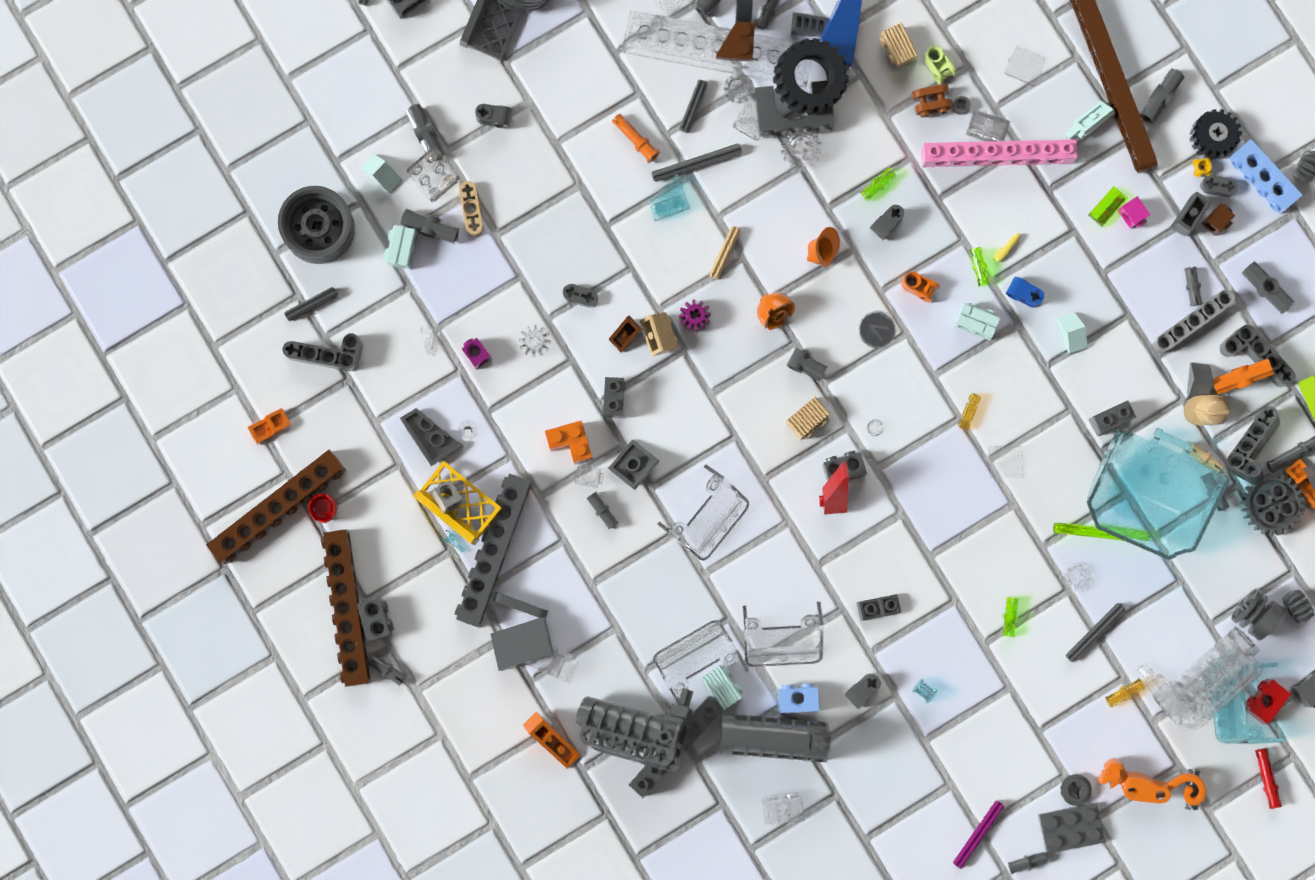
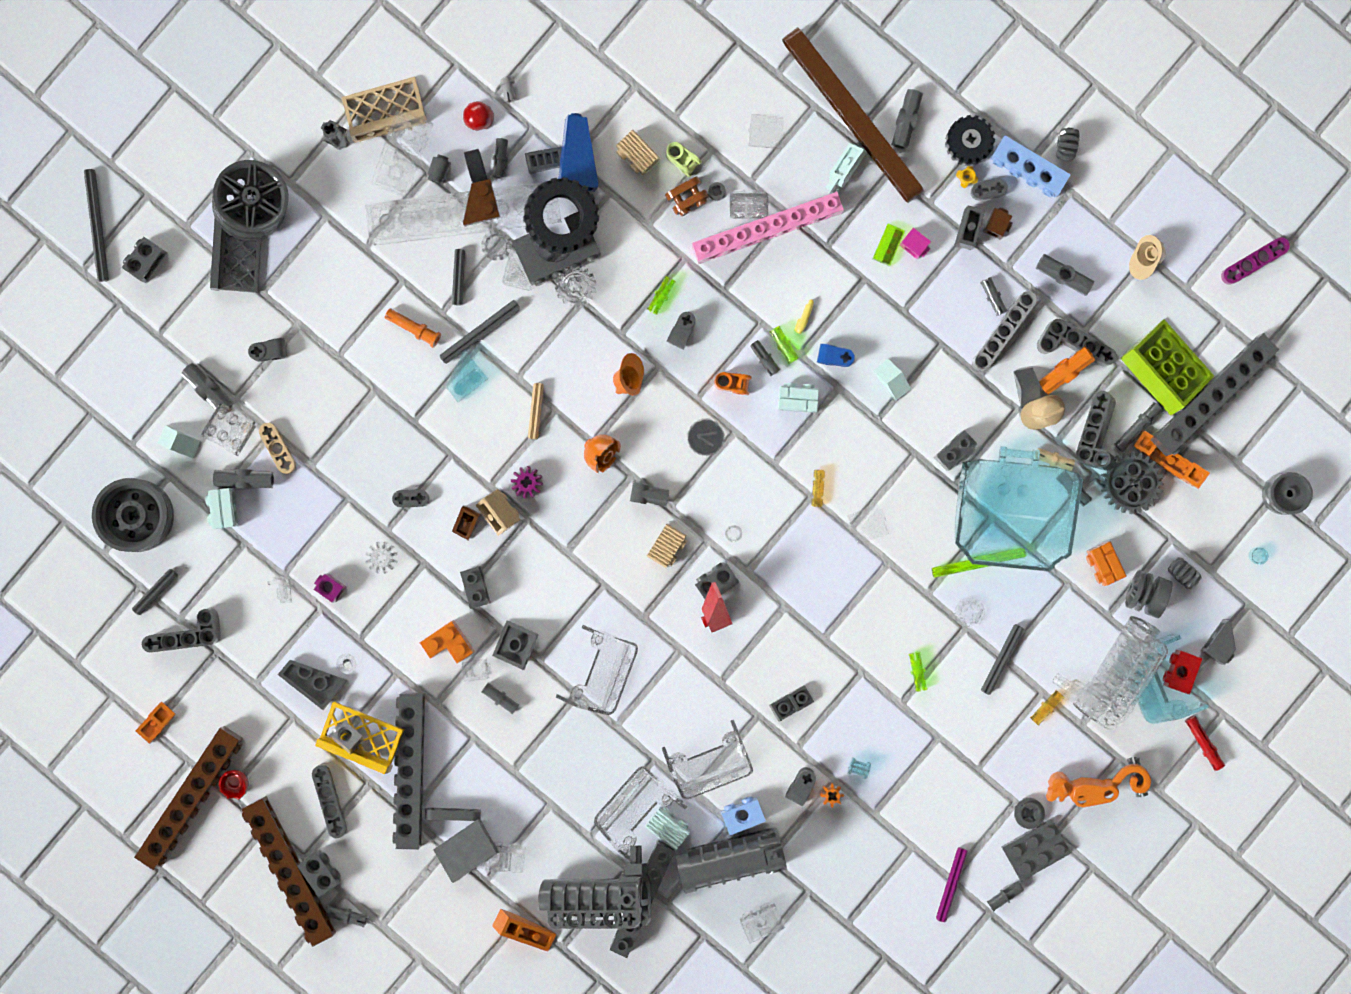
camera: 20 degrees left, 5 degrees up
(403, 554) = (327, 801): none -> dark grey beam
(451, 540) = (368, 774): clear light blue hand -> none
(895, 710) = (831, 800): none -> orange gear
(957, 273) = (765, 358): none -> dark grey axle
(1224, 573) = (1105, 563): none -> orange brick

